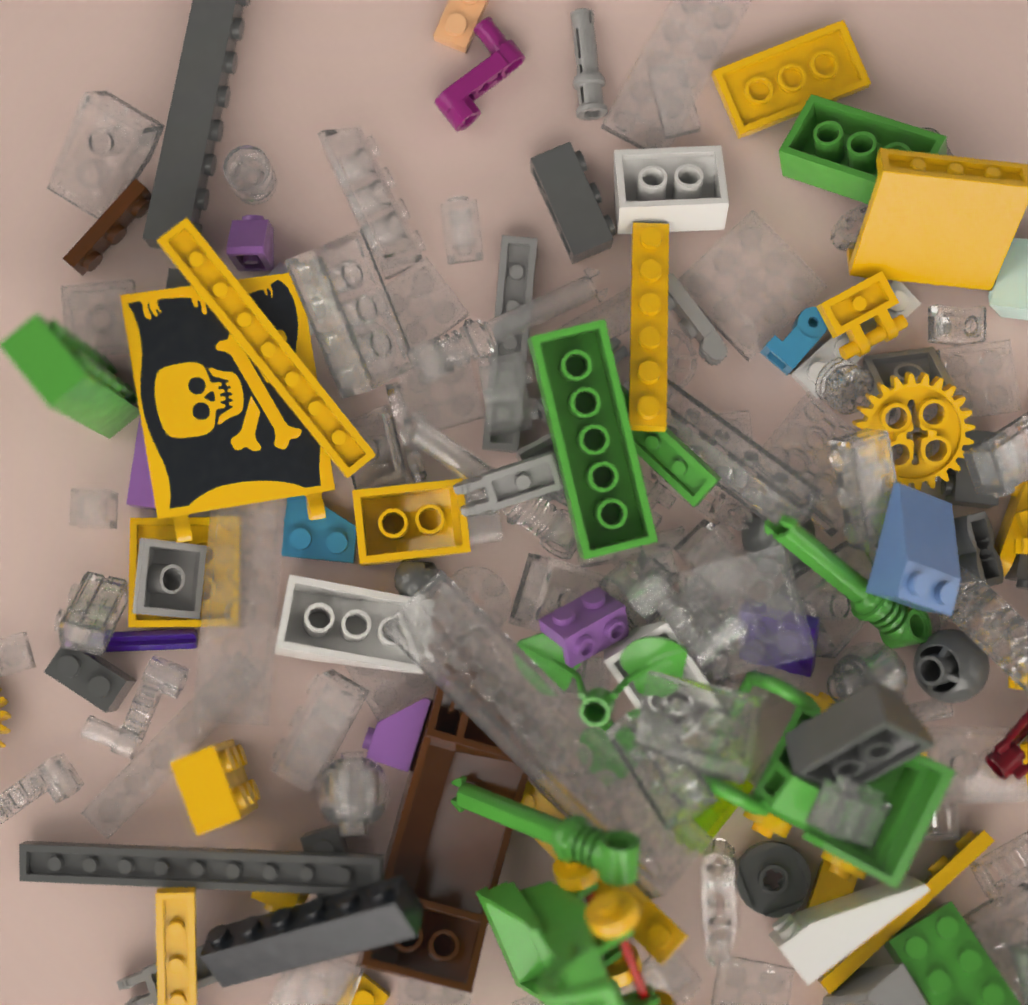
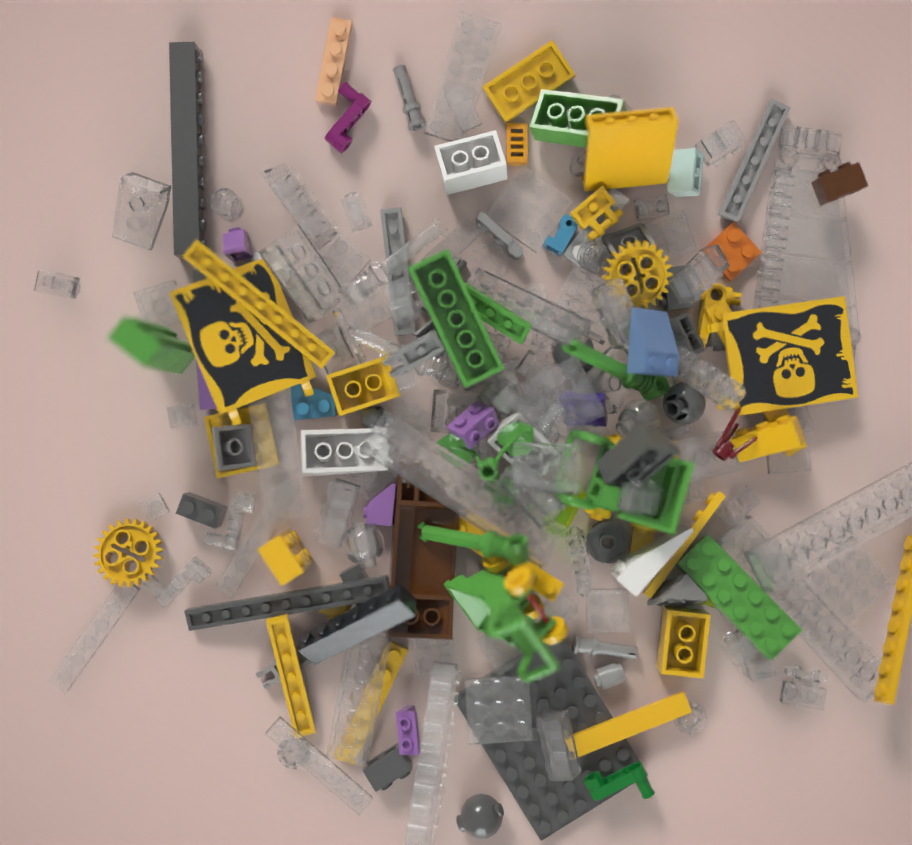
camera: 10 degrees left, 5 degrees up
(92, 613) = (194, 475): clear brick -> none
(109, 228) = (153, 252): reddish brown plate -> none
(153, 640) = (227, 484): dark purple axle -> none
(572, 202) = (417, 181): dark grey brick -> none
(648, 327) = (475, 246): yellow plate -> none
(745, 202) = (514, 160): none -> light orange slope

